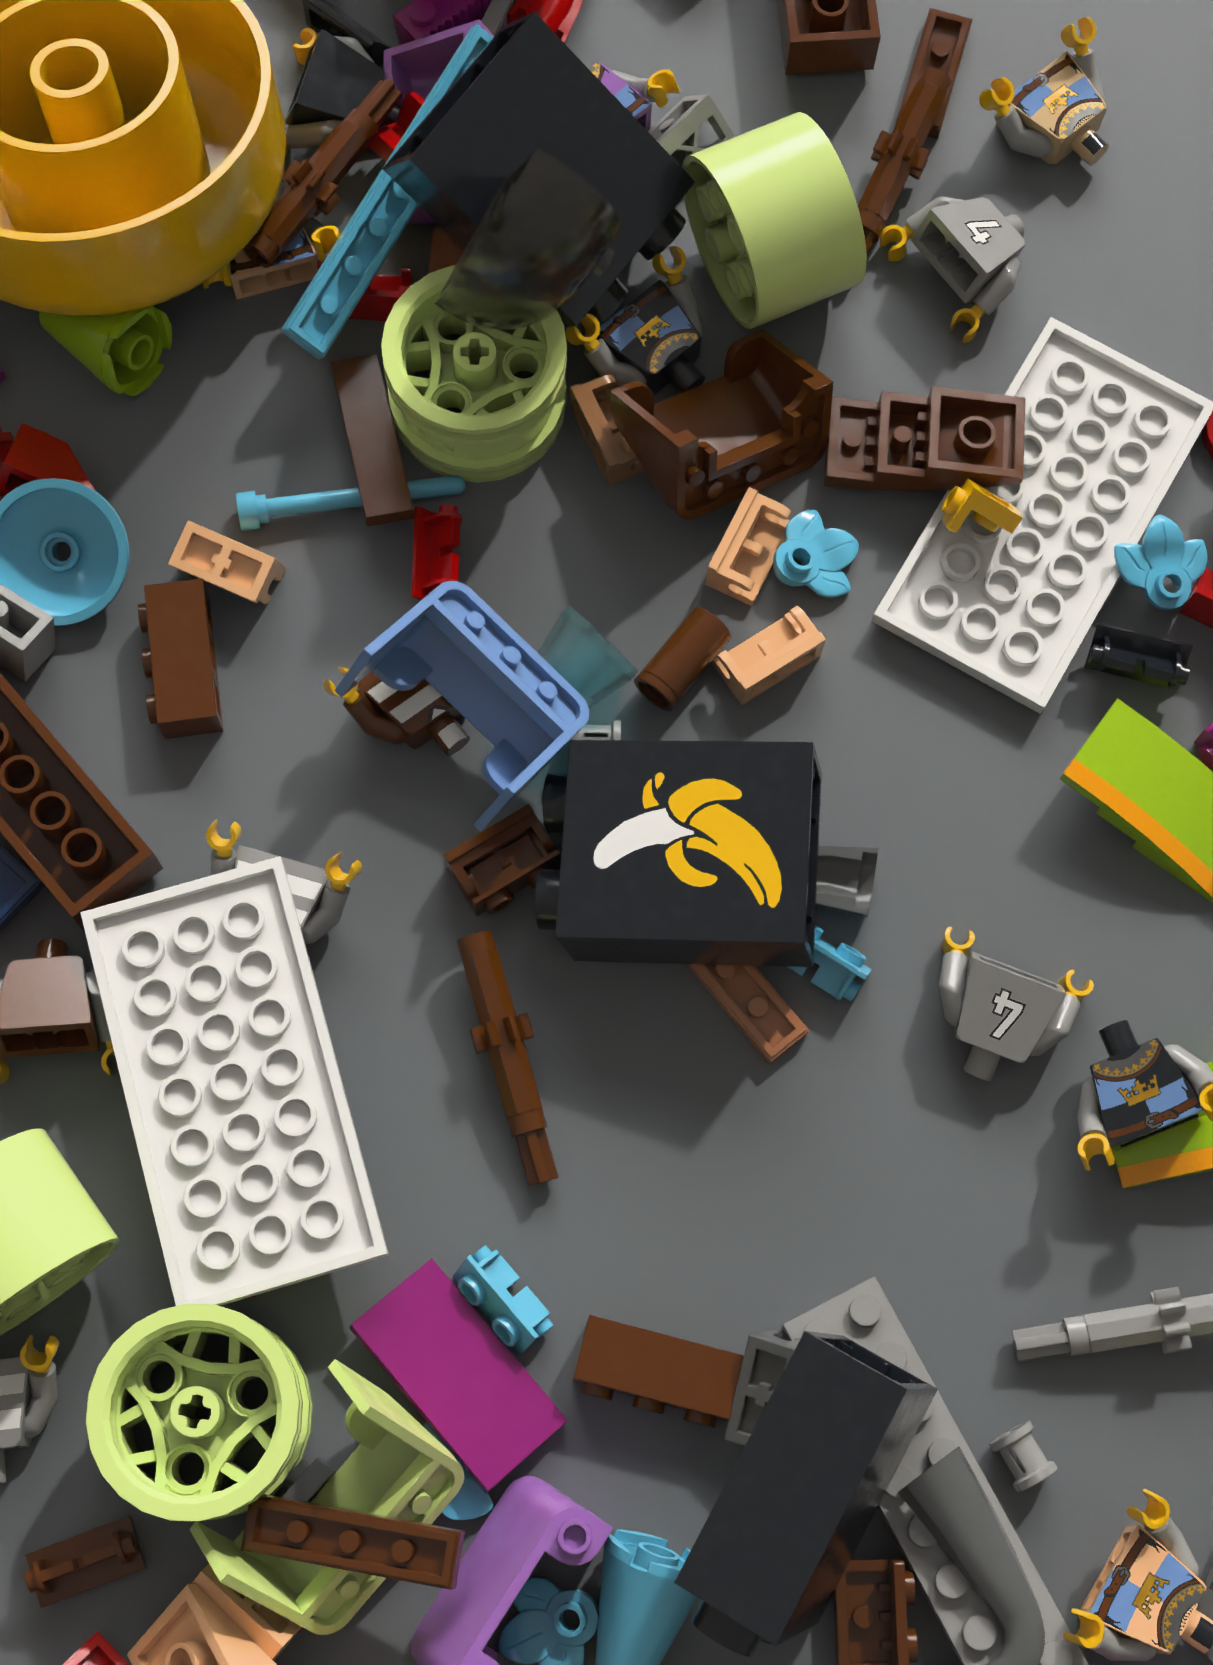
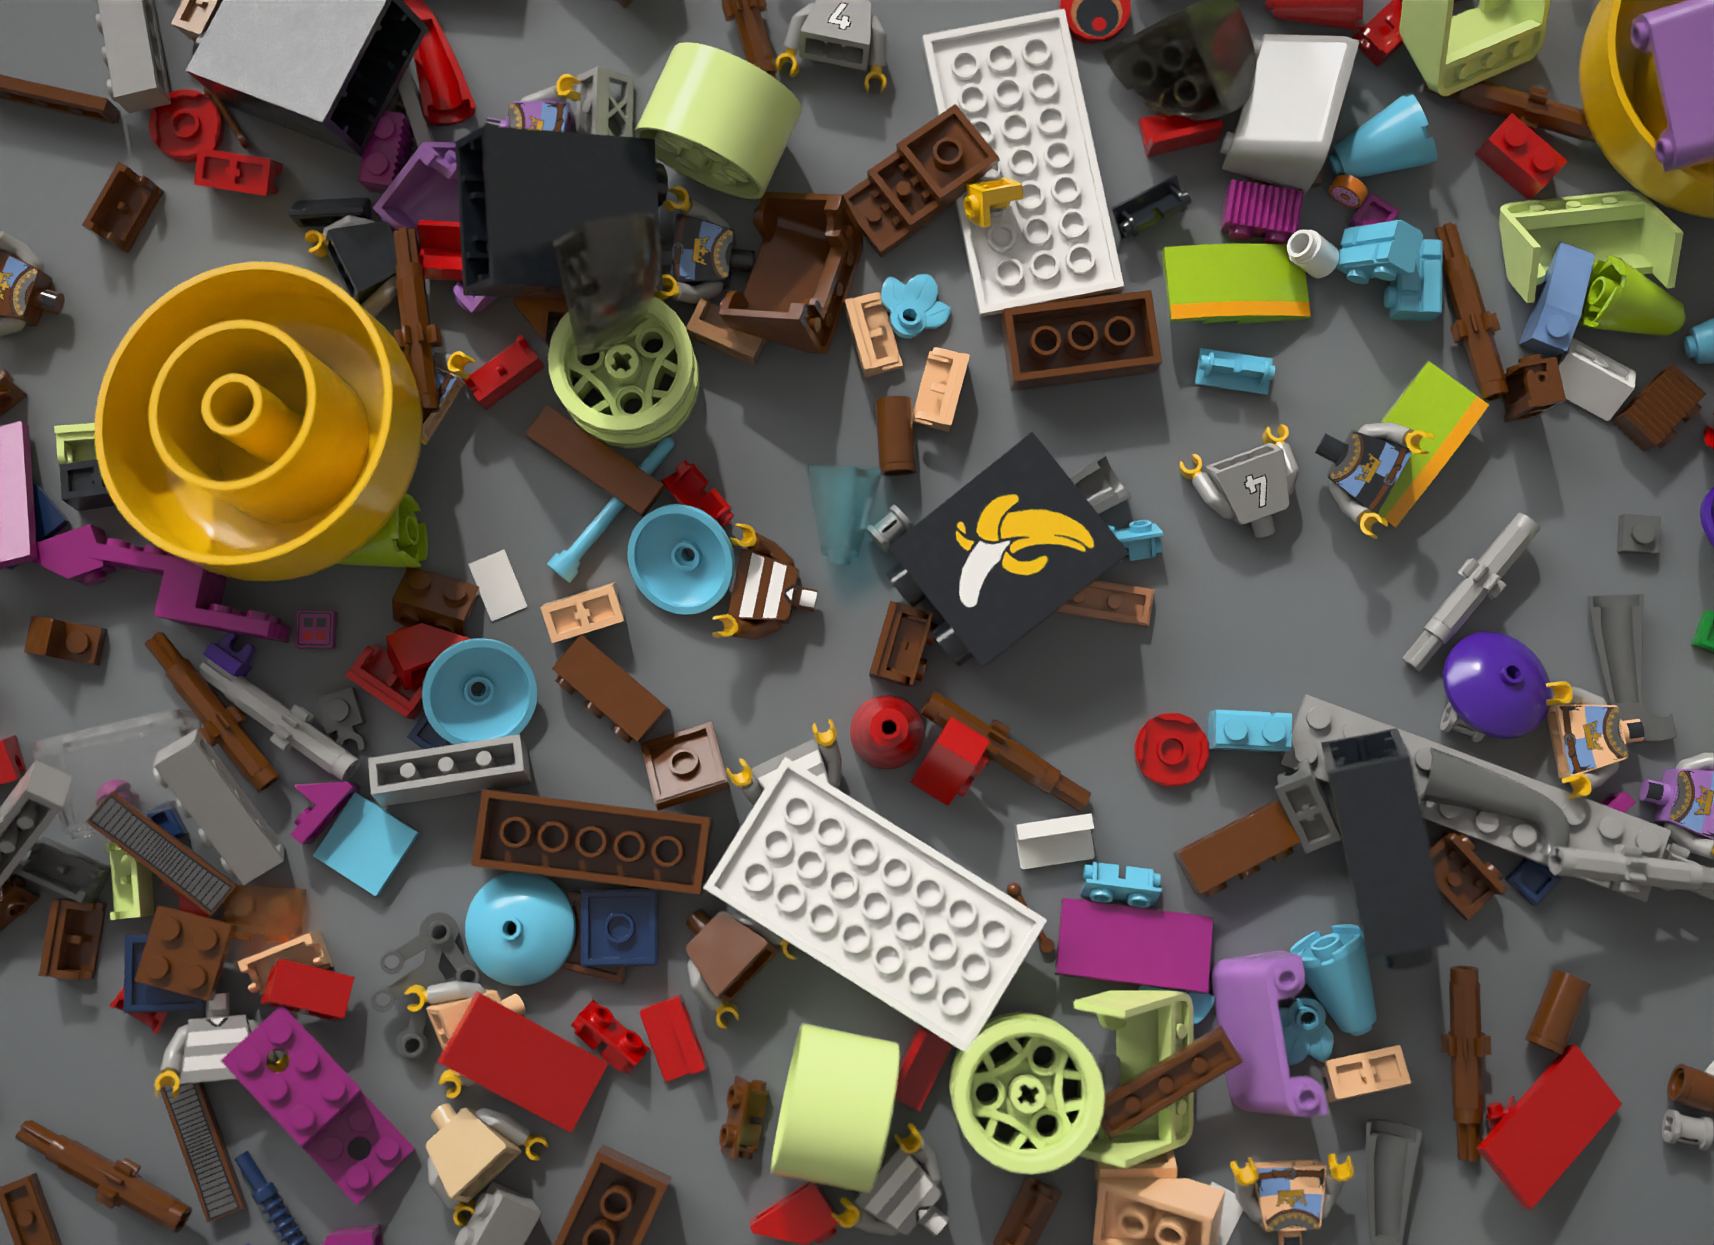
camera: 40 degrees left, 10 degrees up
(101, 438) = (434, 601): none -> reddish brown bracket
(119, 1297) = (920, 1067): none -> red panel
(174, 478) = (497, 585): none -> white sticker
(181, 789) = (684, 766): none -> tile
(349, 579) = (665, 569): none -> medium azure dish
(369, 232) = (478, 316): medium azure tile -> none
(371, 1292) = (1046, 944): none -> reddish brown hinge
(410, 935) = (881, 749): none -> red cone
(441, 1011) = (951, 762): none -> red brick
(477, 1193) = (1055, 841): none -> white panel
(486, 677) = (811, 549): medium blue windscreen -> none
(682, 1209) = (1171, 750): none -> red tile
(779, 1258) = (1249, 731): none -> medium azure brick
(951, 720) = (1081, 340): none -> reddish brown brick
(1069, 1451) = (1485, 694): none -> dark purple dish
(1086, 887) = (1234, 371): none -> medium azure hinge
(1161, 557) = (1113, 134): medium azure plate -> none

